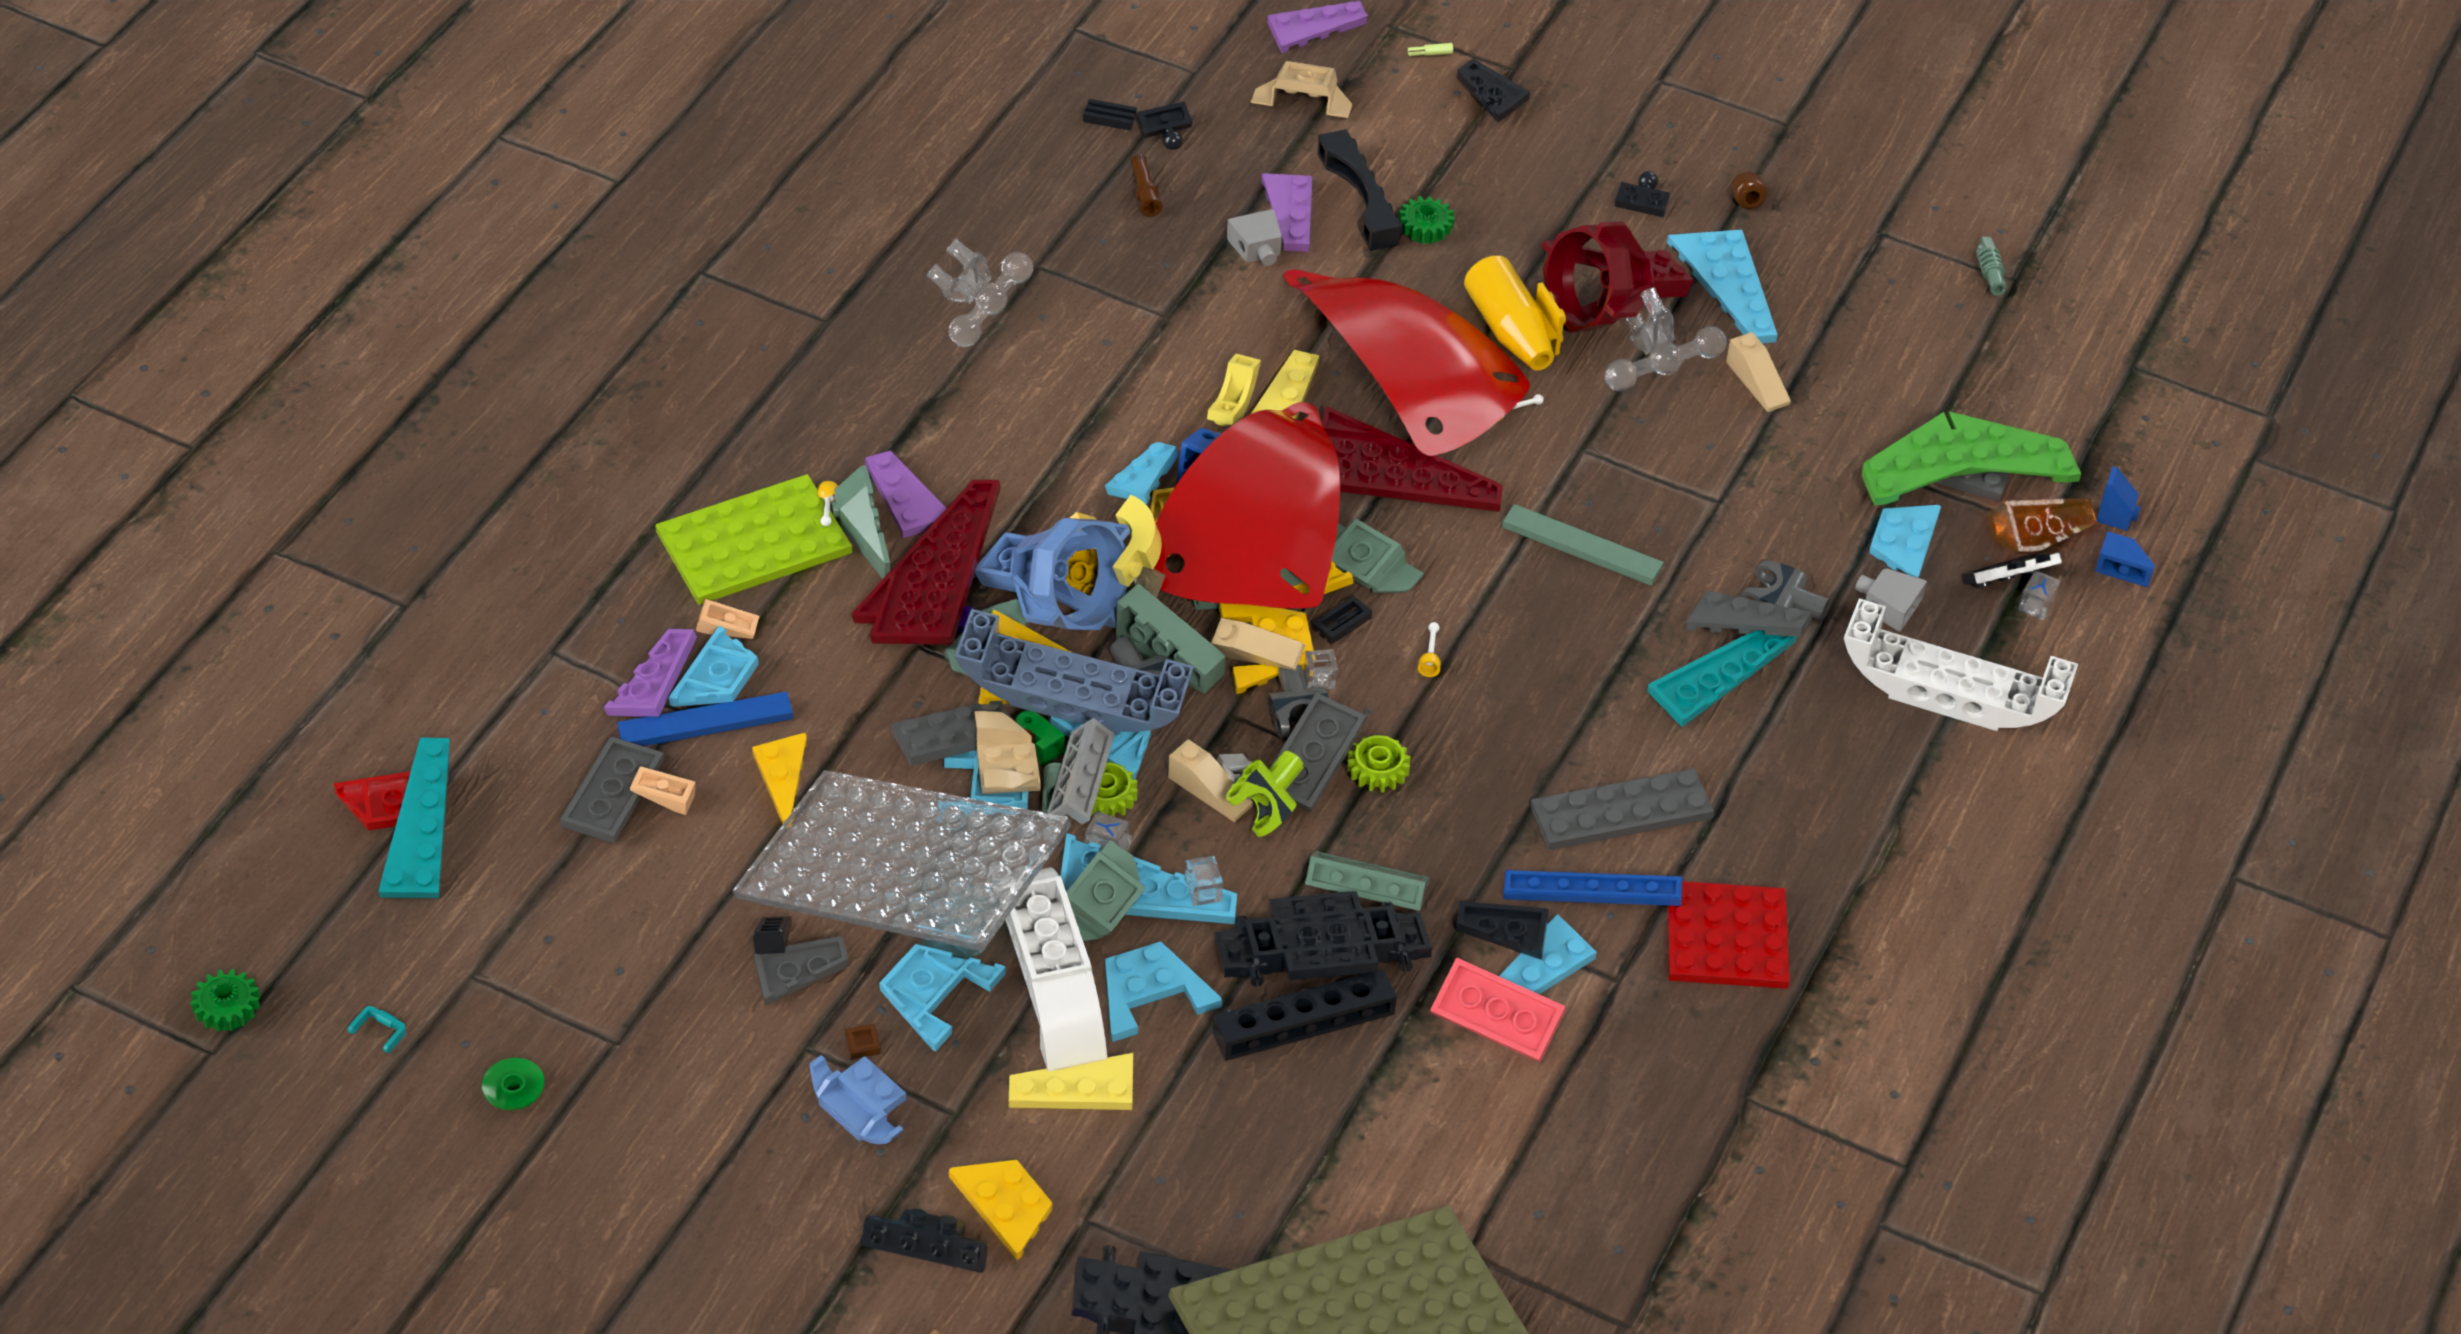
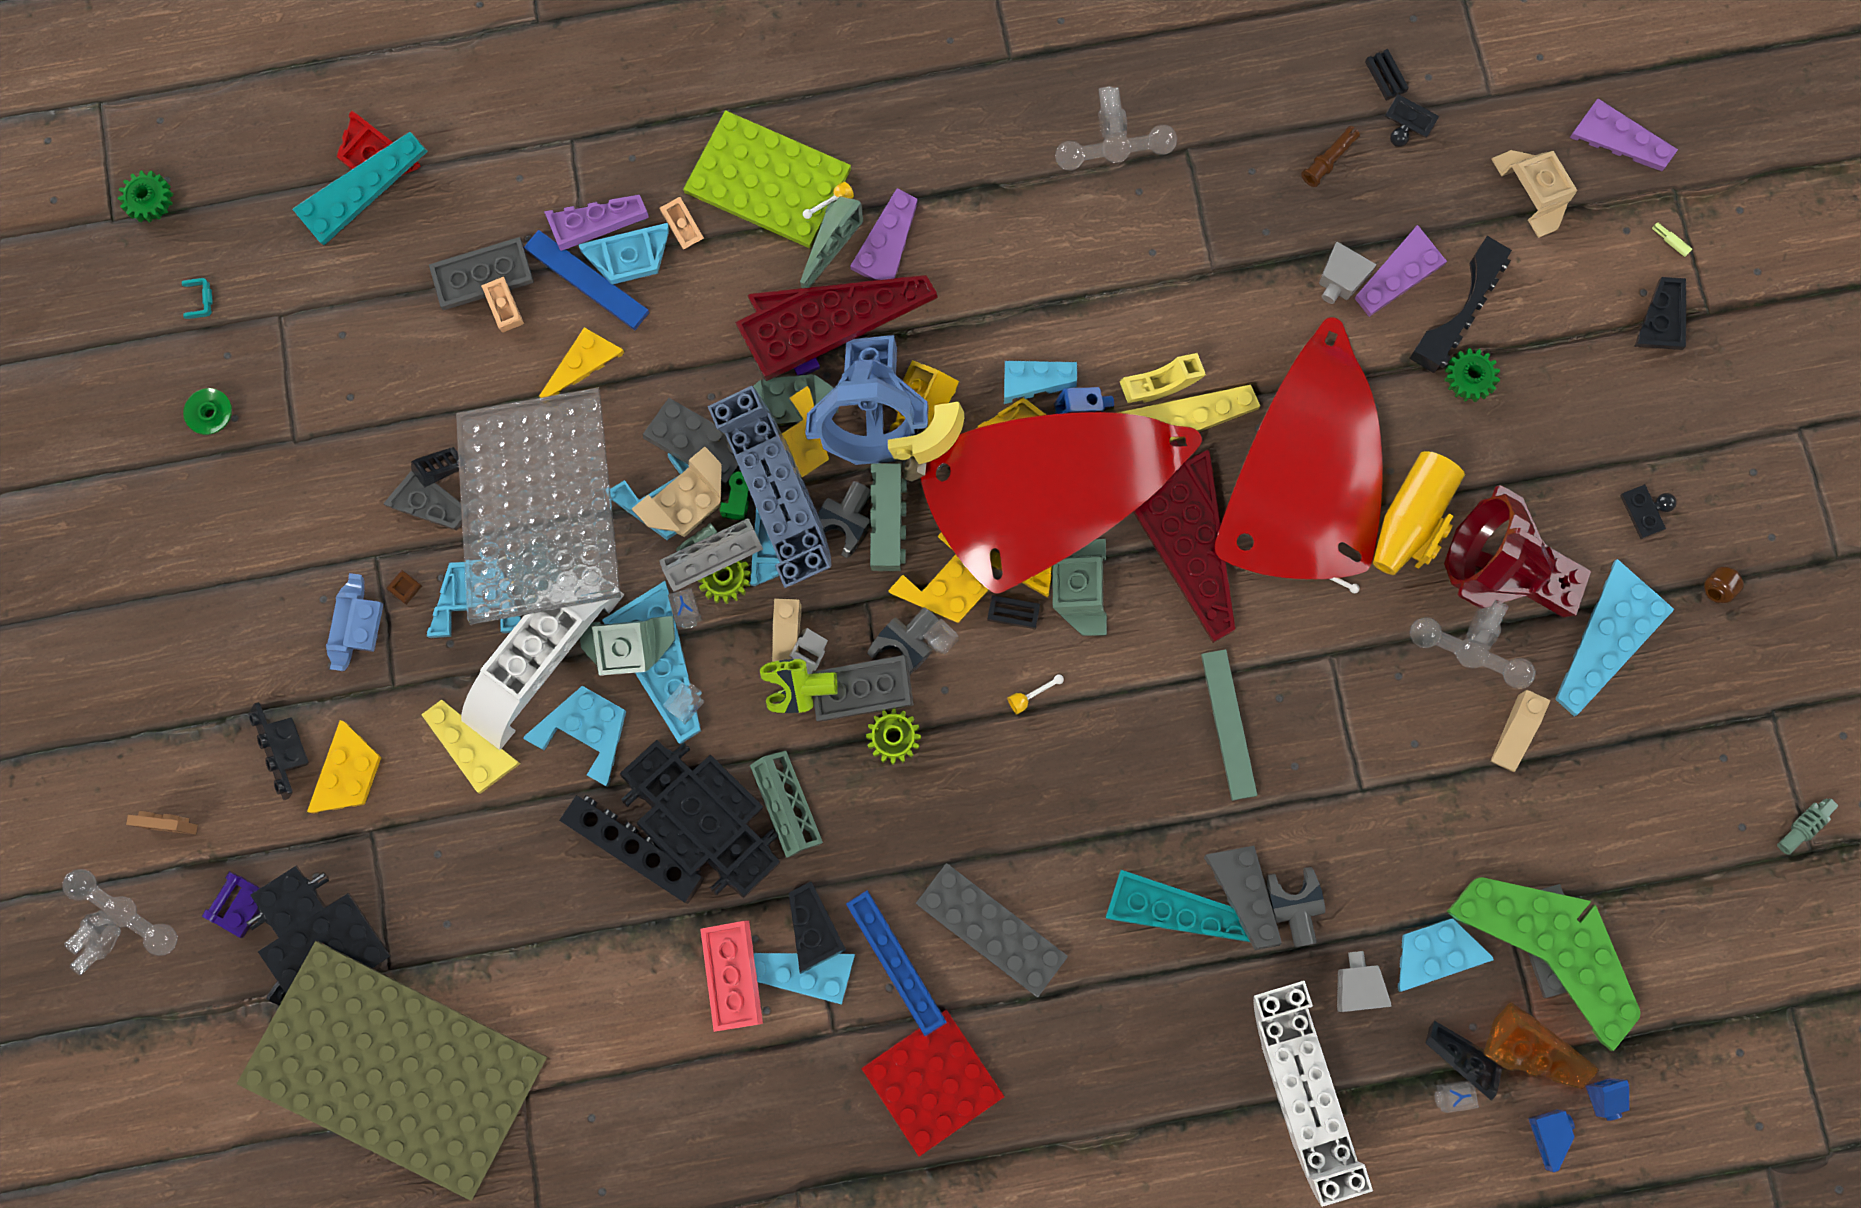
camera: 60 degrees right, 30 degrees up
(1256, 645) = (924, 576): tan slope -> none

